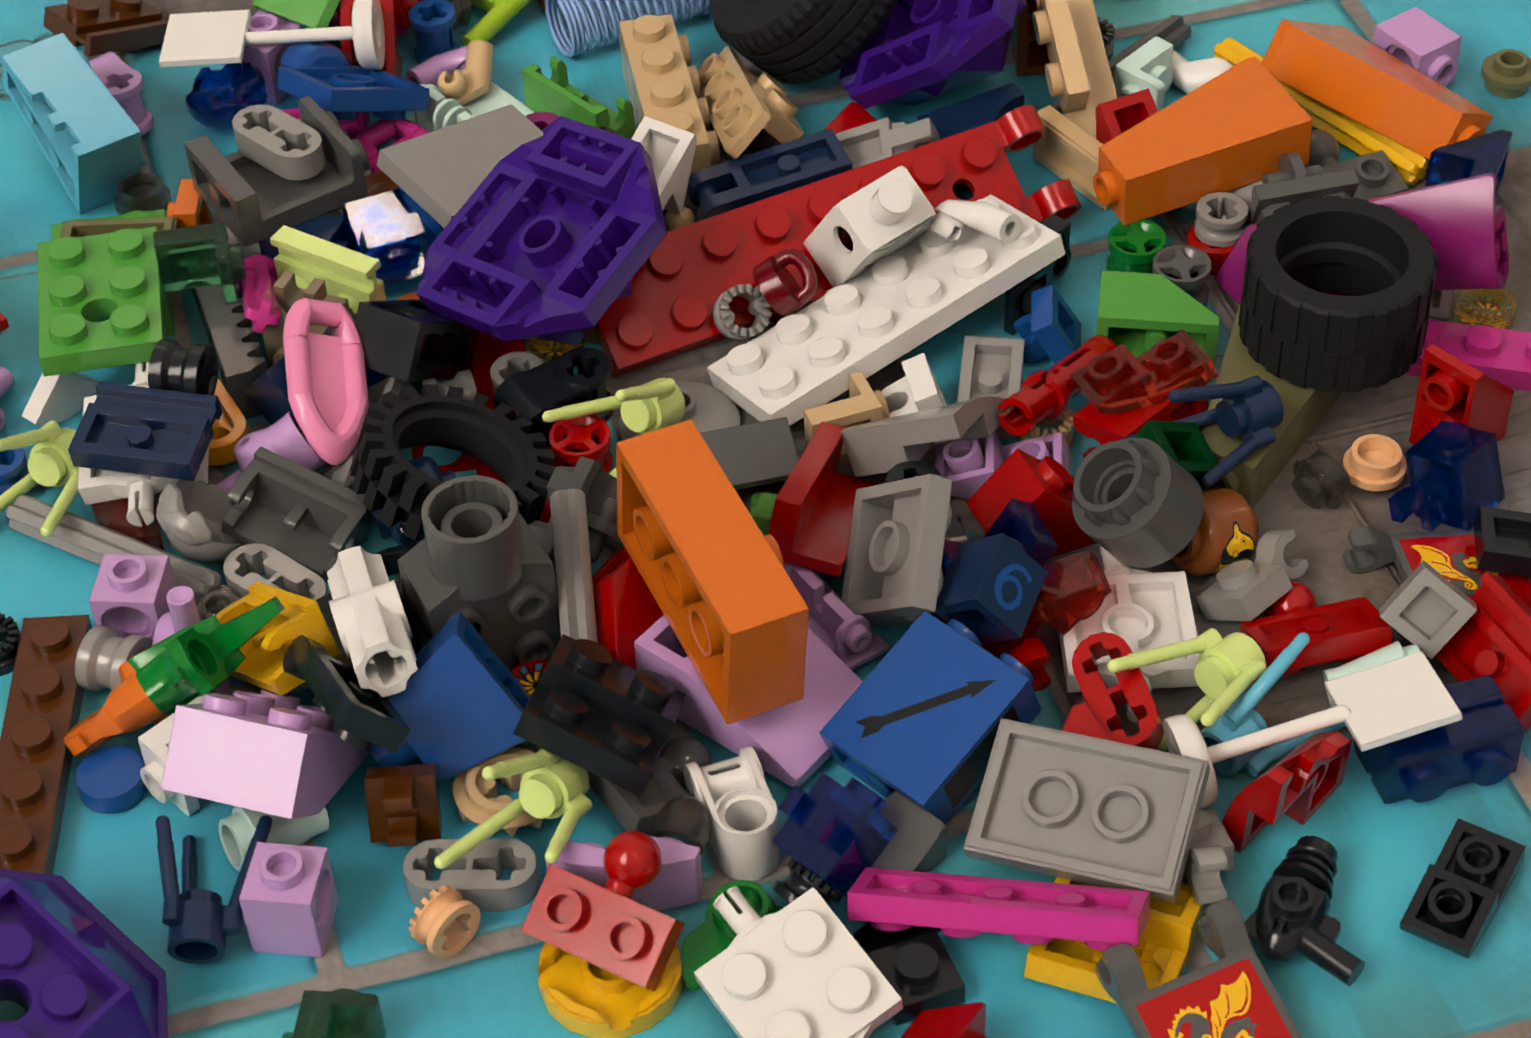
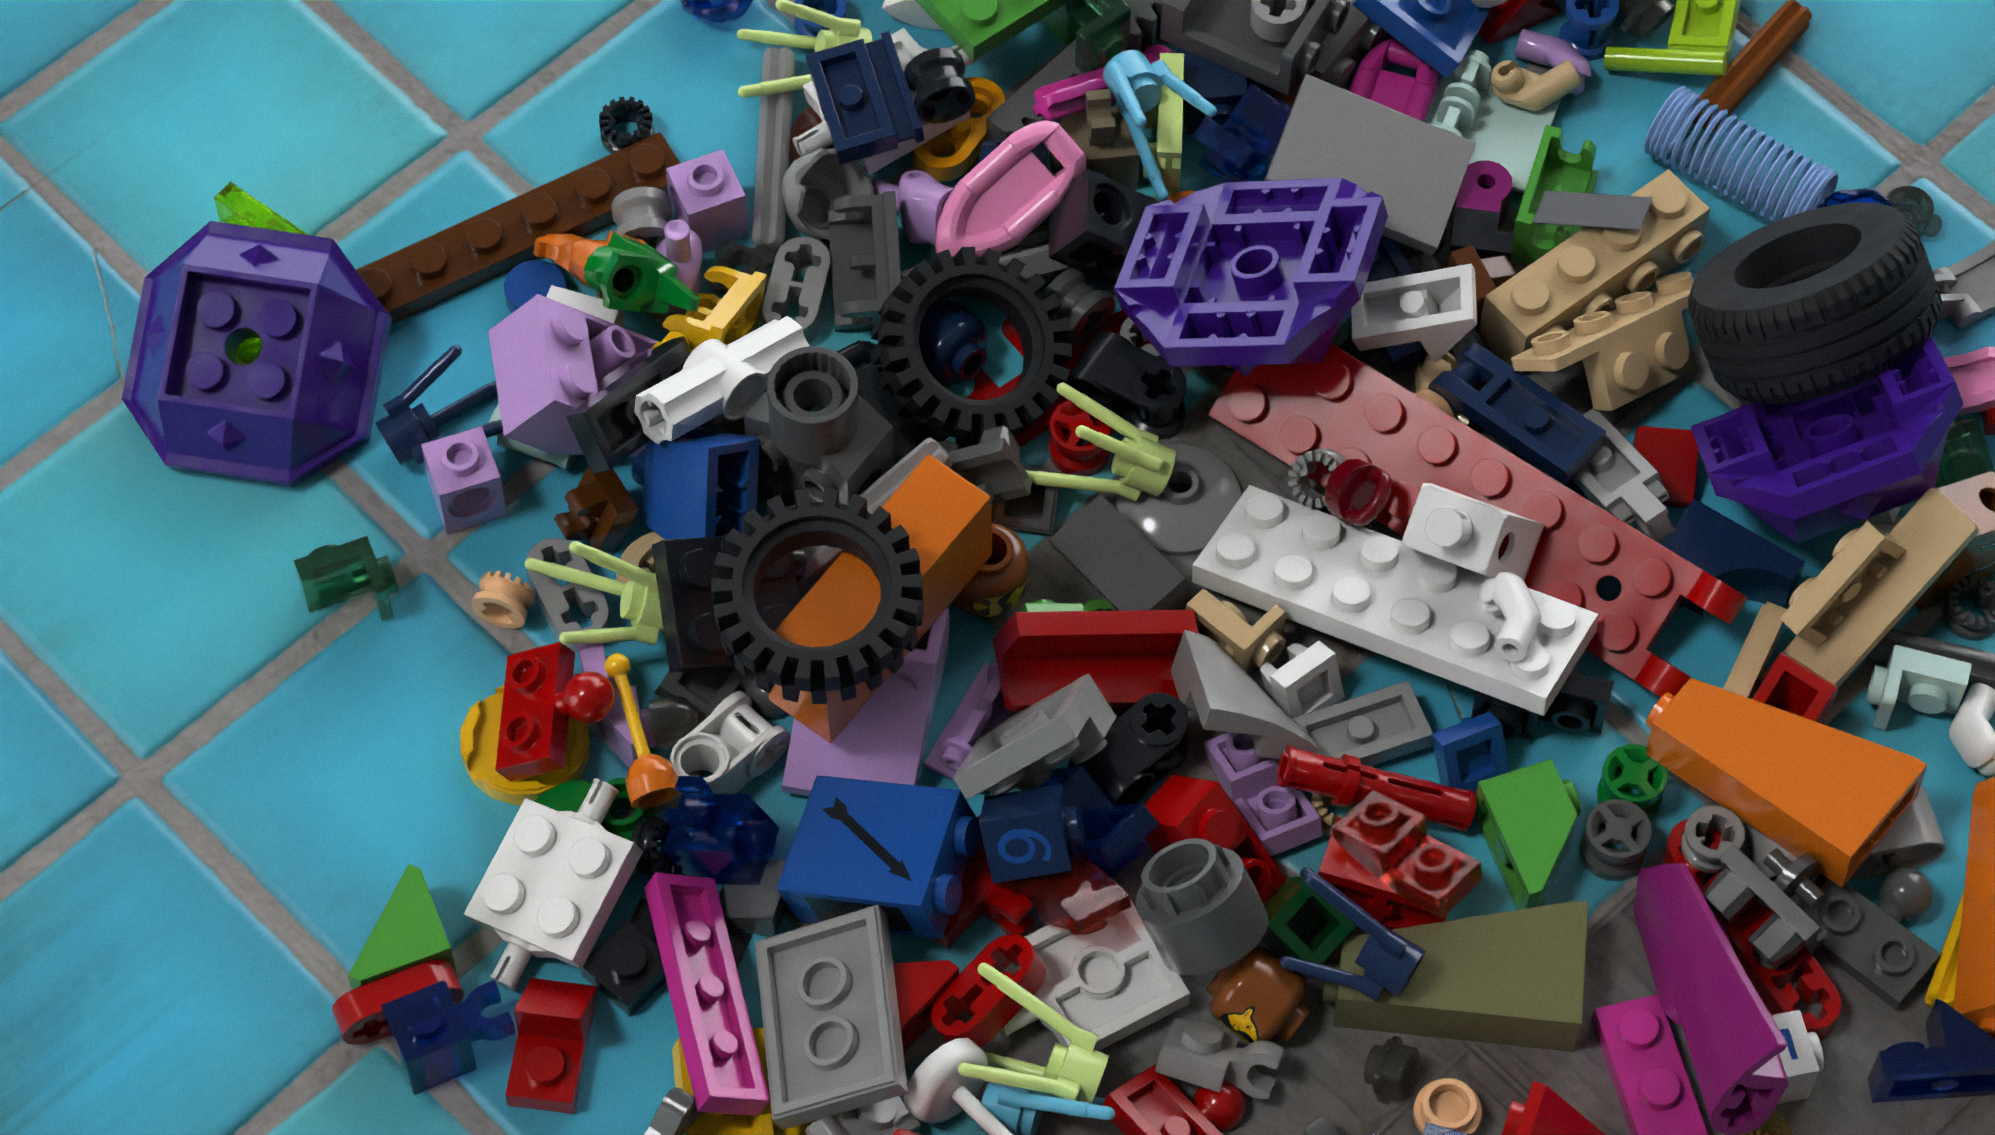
camera: 60 degrees right, 15 degrees up
(299, 253) = (1138, 90): none -> medium azure plant
(625, 67) = (1592, 210): none -> sticker
(721, 621) = (824, 667): none -> black tyre
(740, 854) = (650, 777): none -> hinge
(1334, 338) = (1593, 902): black tyre -> none

